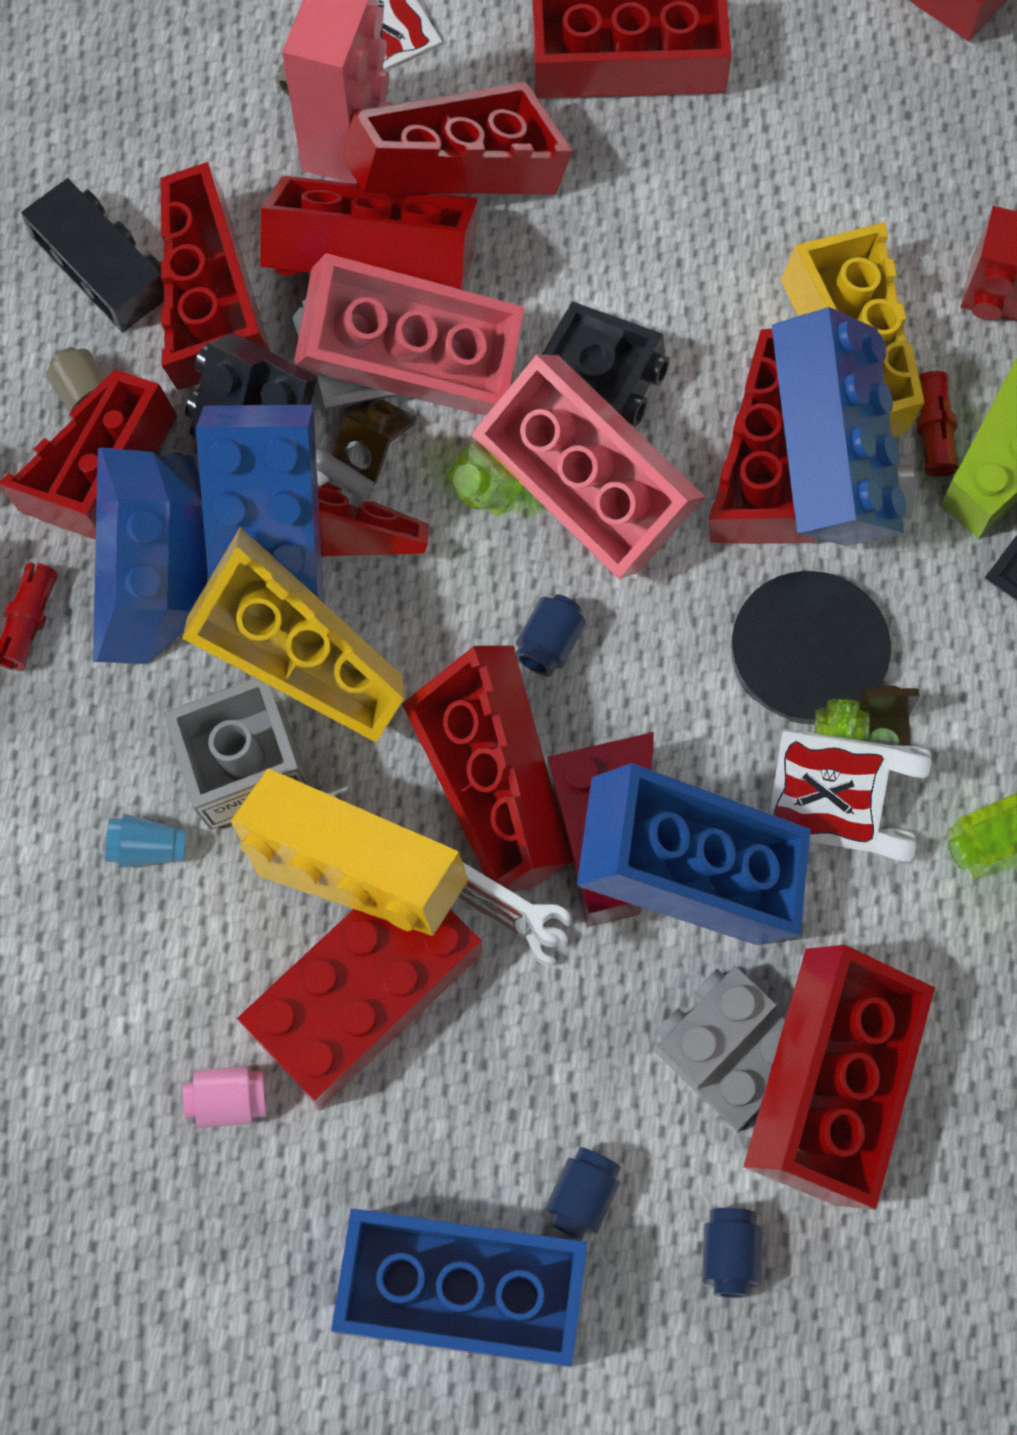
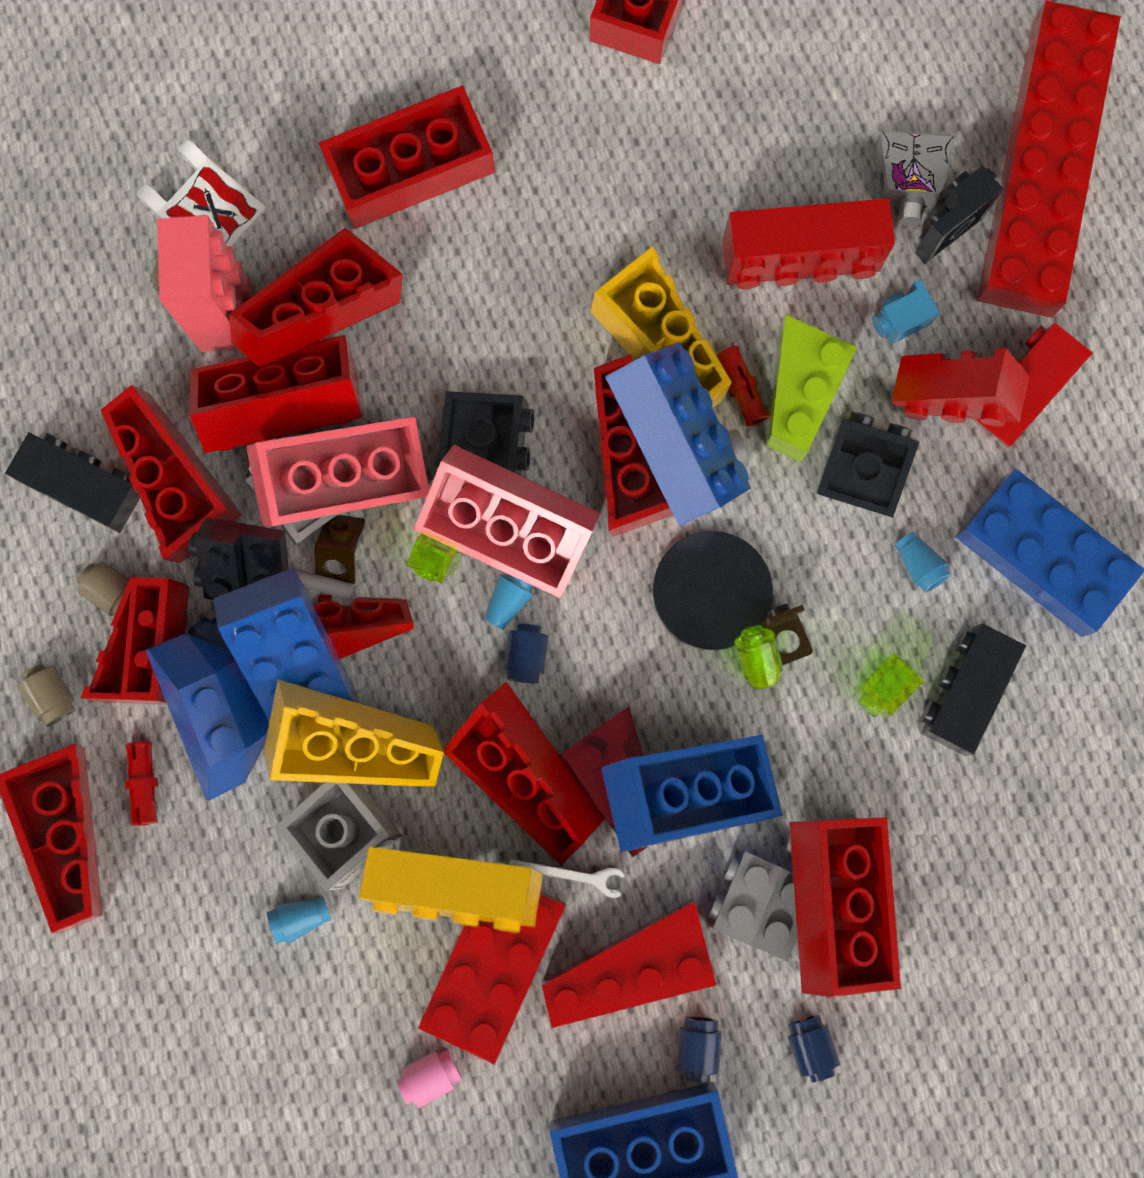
camera: 20 degrees left, 10 degrees up
(540, 1059) = (640, 968): none -> red wedge
(554, 564) = (507, 600): none -> dark azure cone
(840, 790) = (771, 695): flag -> none

